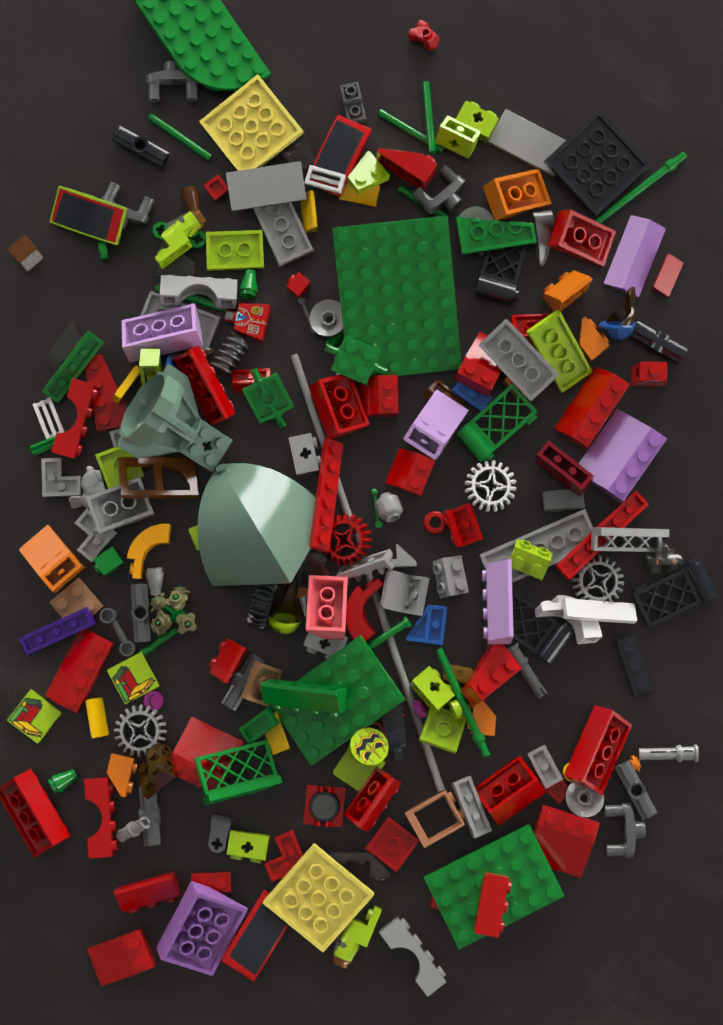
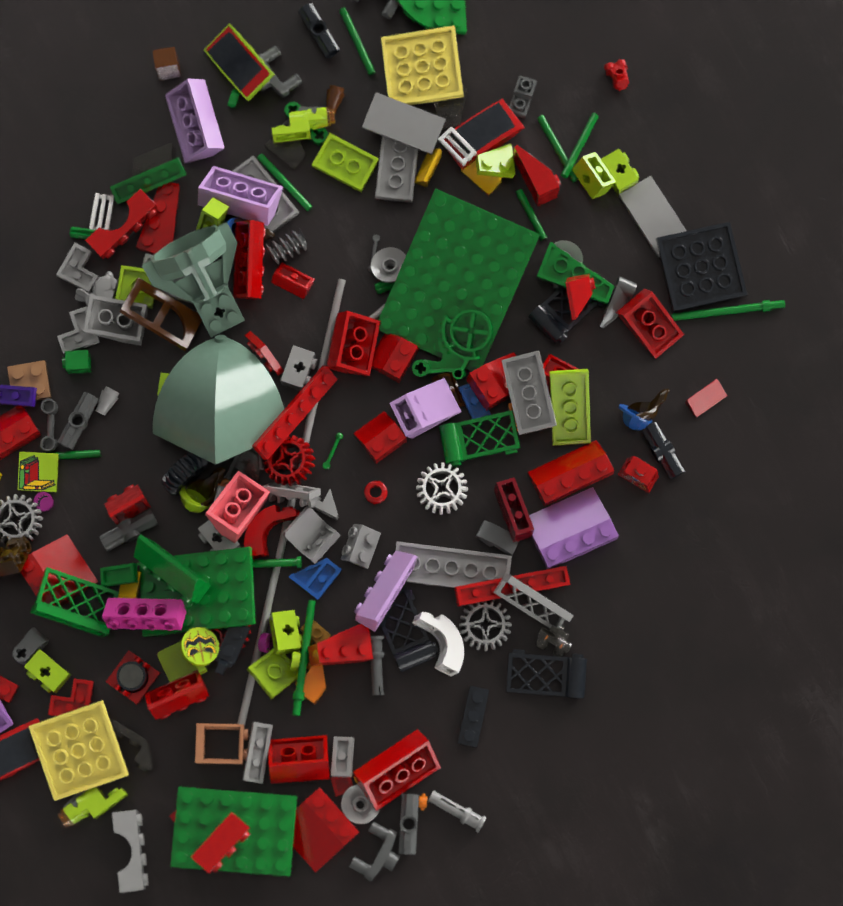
camera: 30 degrees right, 5 degrees down
(51, 559) = (31, 332): orange slope -> none
(80, 289) = (194, 120): none -> lavender slope
(126, 384) = (183, 222): yellow tile -> none
(143, 543) = (117, 363): light orange arch -> none
(176, 288) = (274, 165): light grey arch -> none
(177, 603) = (112, 427): olive plant -> none
(216, 188) = (361, 101): red plate -> none
(249, 285) = (339, 198): green cone -> none
(250, 320) = (322, 229): red torso -> none
(259, 673) = (146, 528): medium nougat plate -> none
(266, 459) = (262, 351): none -> red plate
(268, 398) = (296, 302): green plate -> none
(294, 746) = (144, 614): none -> dark pink brick
(298, 285) = (381, 222): red plate -> none
(355, 359) = (390, 312): green plate -> none
(389, 507) = (343, 455): light grey head -> none
(392, 844) = (170, 744): red plate -> none
(433, 370) = (452, 360): none -> green piece
(447, 198) = (553, 221): dark grey connector -> none
(463, 525) = (397, 508): red bracket -> none
(510, 247) = (579, 292): none -> red slope
(516, 194) = (616, 253): orange slope -> none
(530, 559) = (437, 569): lime bracket -> none
(566, 290) = (608, 360): orange slope -> none
(590, 341) = (603, 416): orange slope -> none
(599, 611) = (470, 650): white tile -> none
(634, 255) = (688, 364): medium lavender slope -> none

